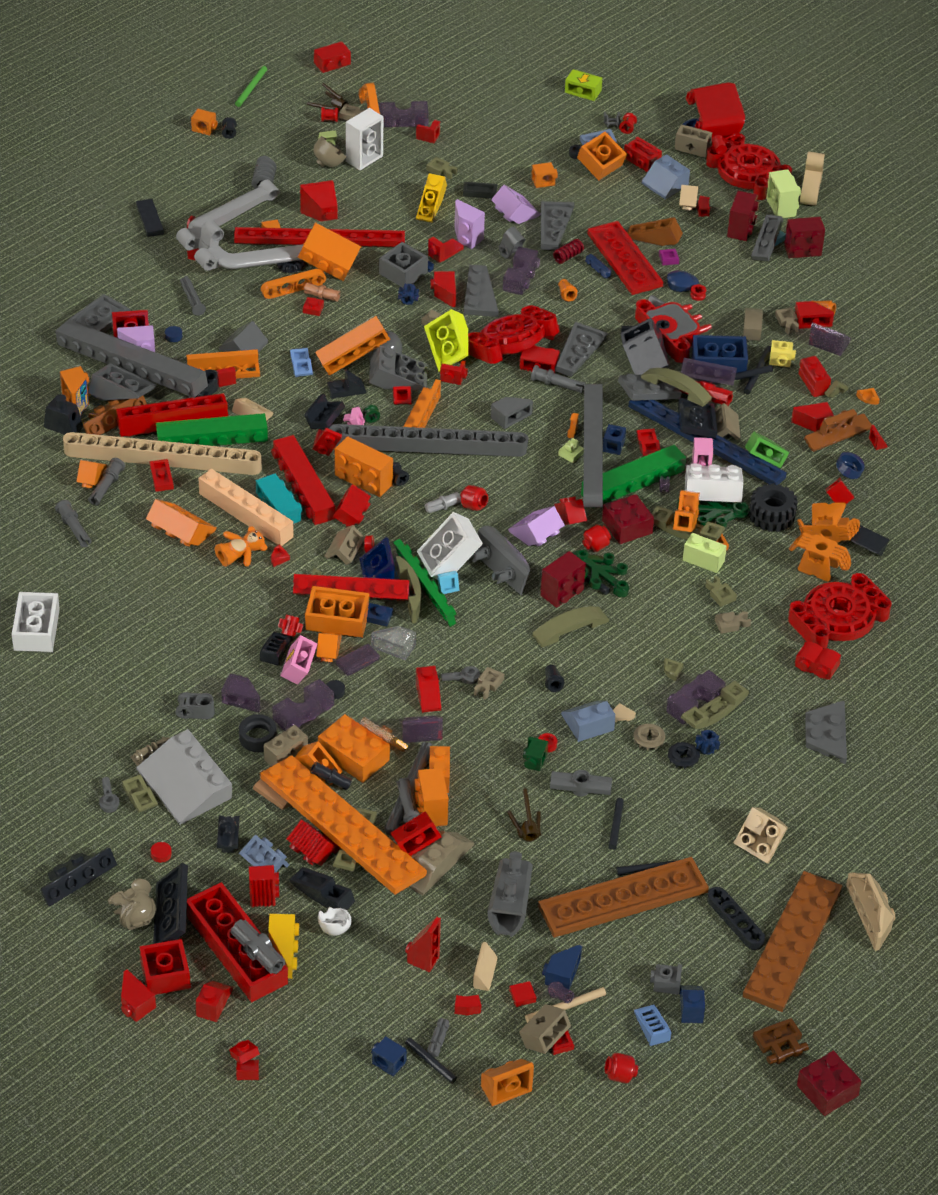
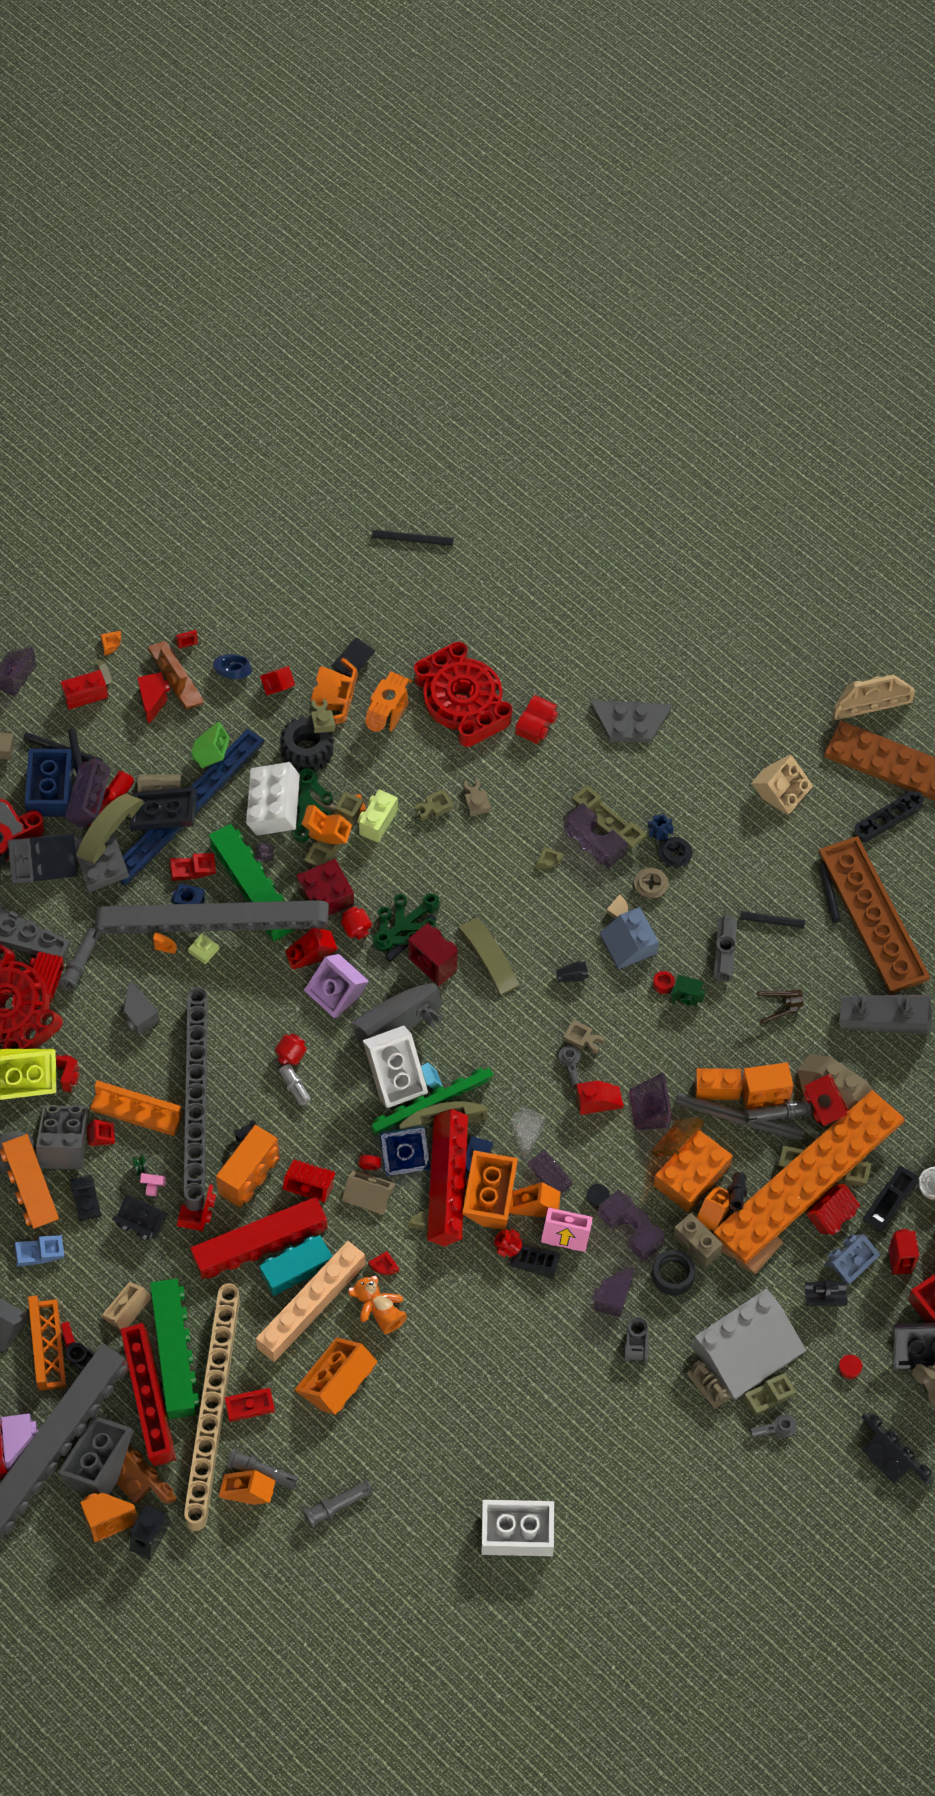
camera: 90 degrees left, 15 degrees up
(702, 451) = (233, 806): bright pink brick -> none
(782, 353) = (45, 719): light yellow brick -> none
(793, 507) = (322, 718): none -> olive plate

